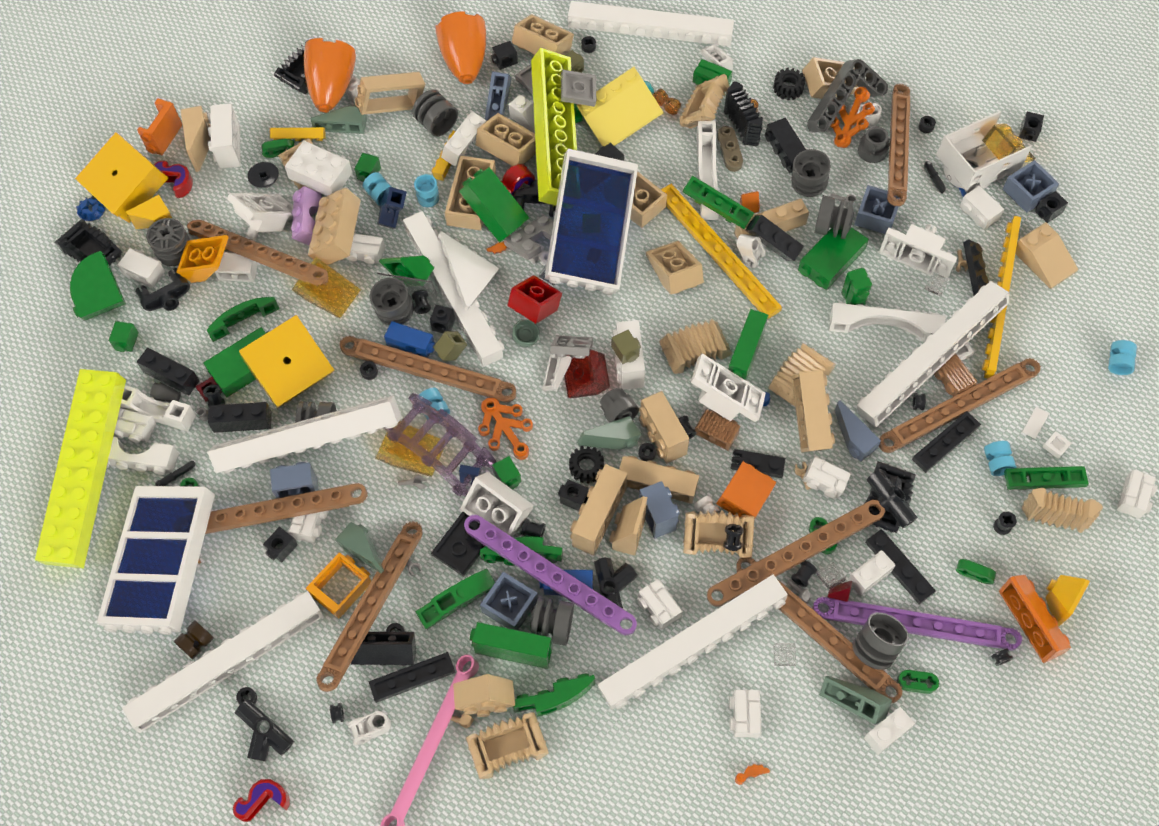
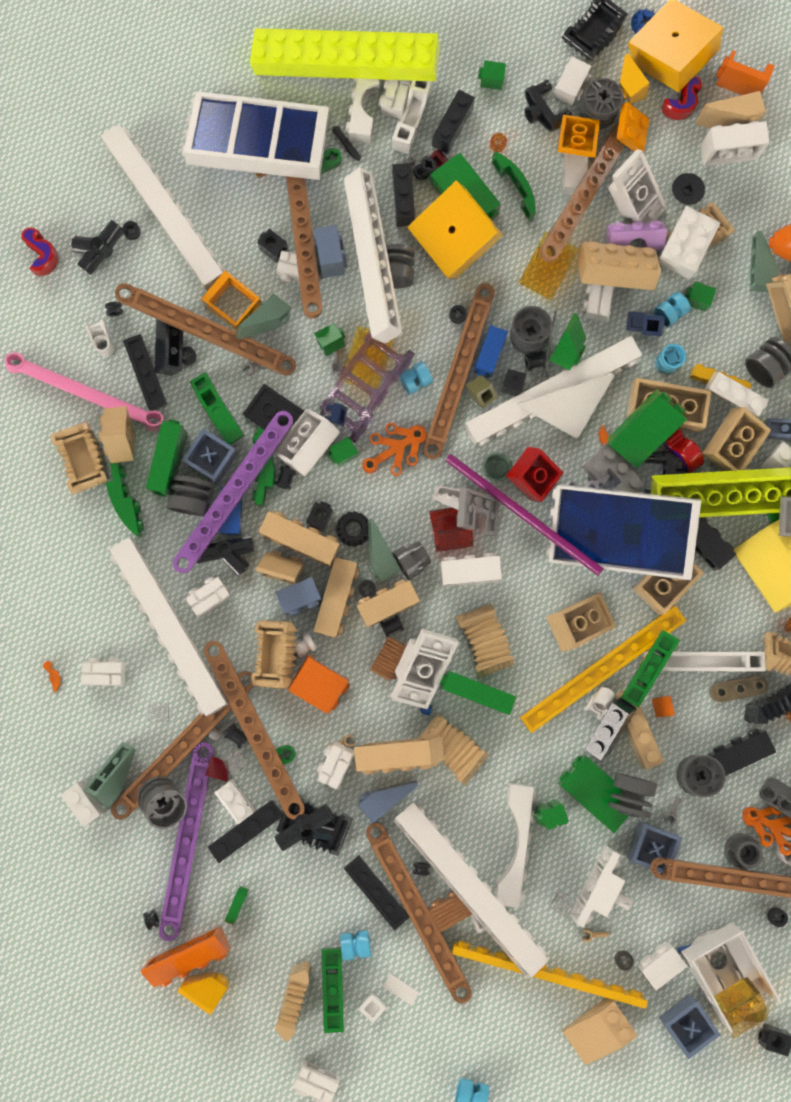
camera: 80 degrees right, 20 degrees up
(94, 288) = (545, 38): green brick -> none
(164, 393) = (431, 121): dark grey cone -> none
(193, 639) = (179, 176): dark brown wheel -> none
(194, 339) = (498, 148): none -> clear orange bush
(198, 216) = (632, 127): none -> light orange plate
(273, 148) = (724, 200): green beam -> none
(298, 133) = (744, 220): yellow piece -> none
(387, 486) = (330, 339): none -> green brick
(572, 309) = (525, 515): none -> magenta piece
(625, 347) = (465, 565): olive brick -> none
(733, 537) = (264, 664): black bush -> none
(766, 464) = (355, 699): black hinge -> none
(918, 676) = (126, 835): green beam -> none
(934, 175) = (704, 918): black piece -> none
(975, 265) = (579, 950): black plate -> none
(982, 233) = (629, 965): none -> clear smoke bush
(1001, 528) = (288, 946): black bush -> none
(1051, 206) = (668, 1053): black brick -> none

